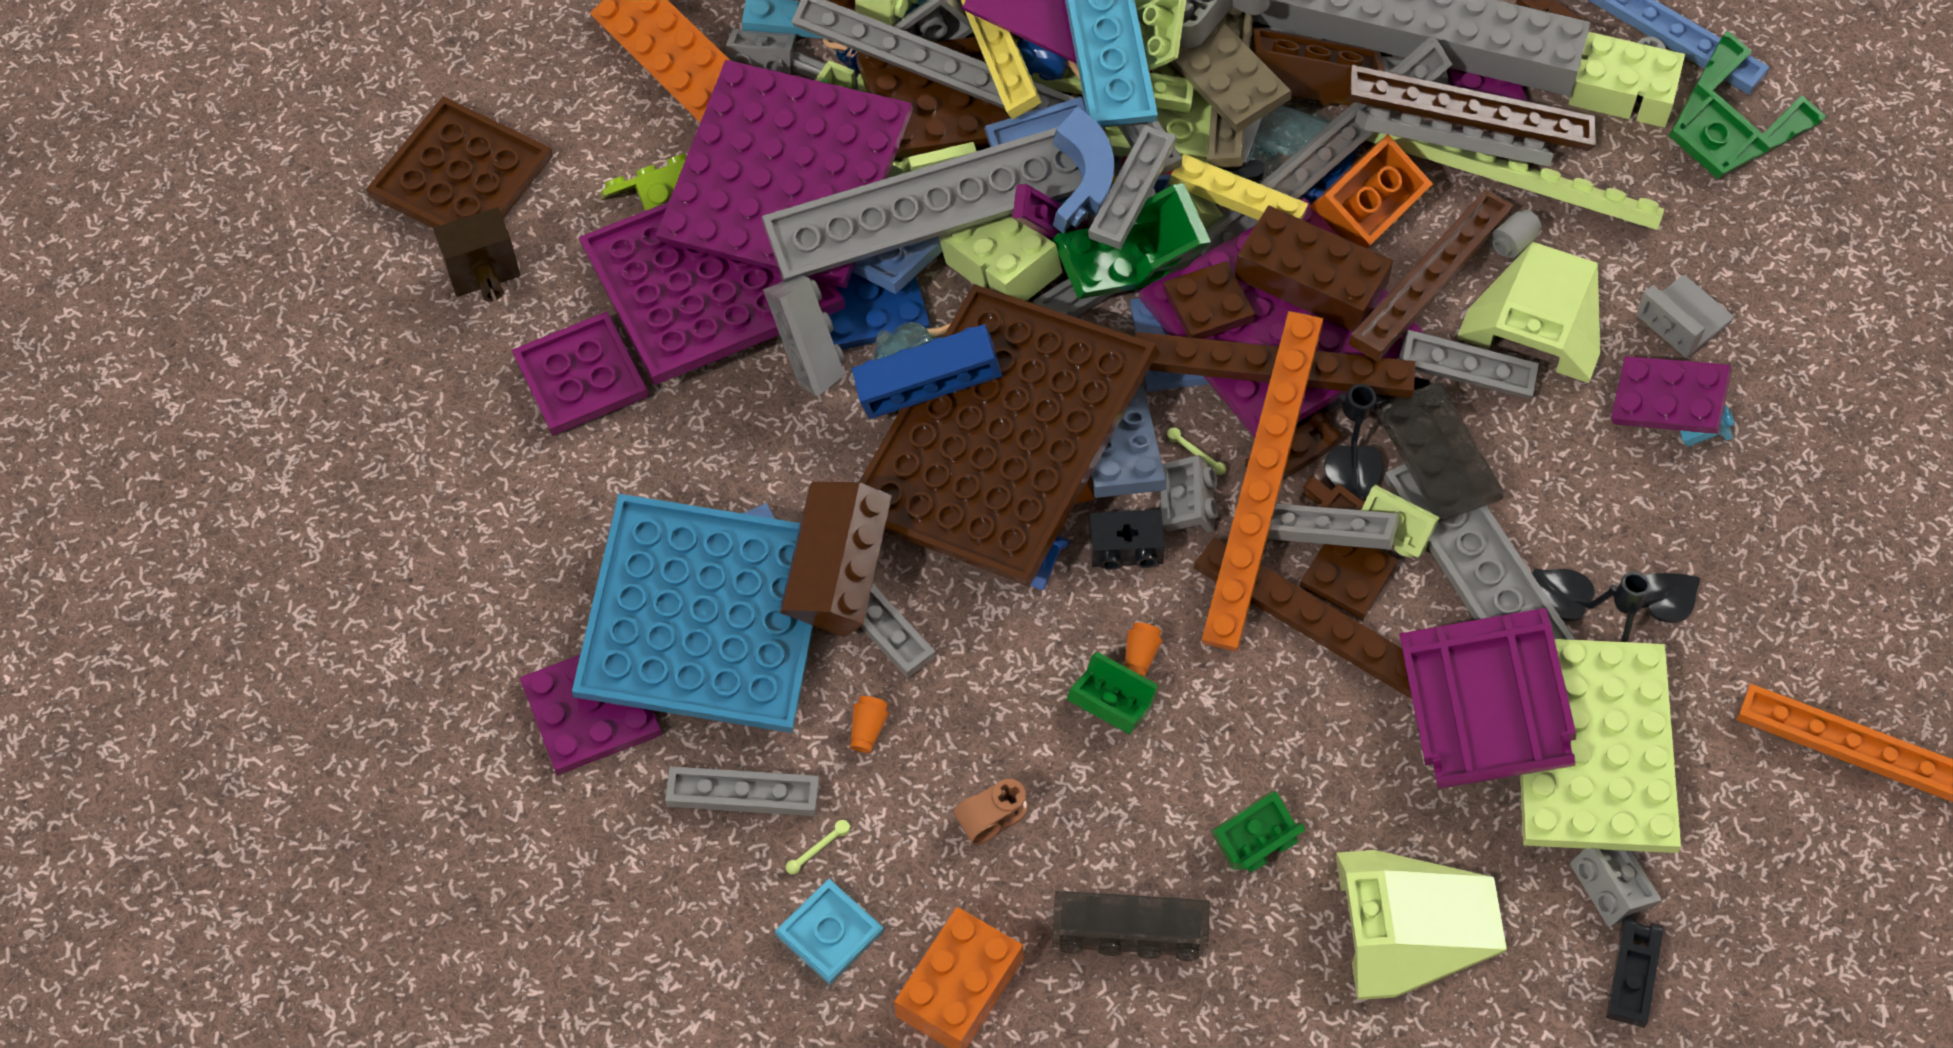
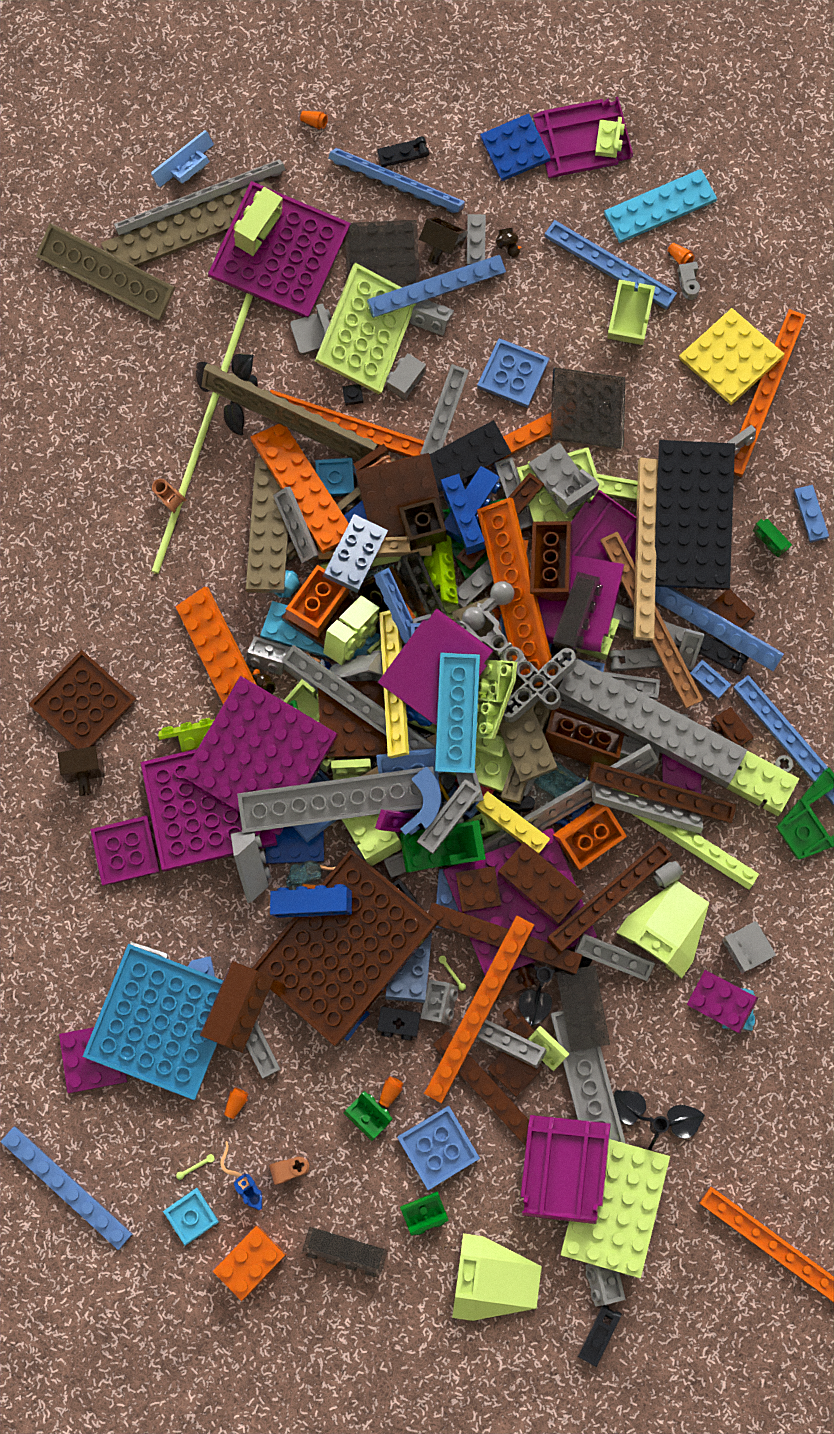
camera: 15 degrees right, 15 degrees up
(586, 931) = (66, 1188): none -> medium blue plate
(742, 791) = (162, 1127): light grey plate -> none
(919, 853) = (244, 1185): none -> blue animal
(1251, 723) = (438, 1147): none -> medium blue plate

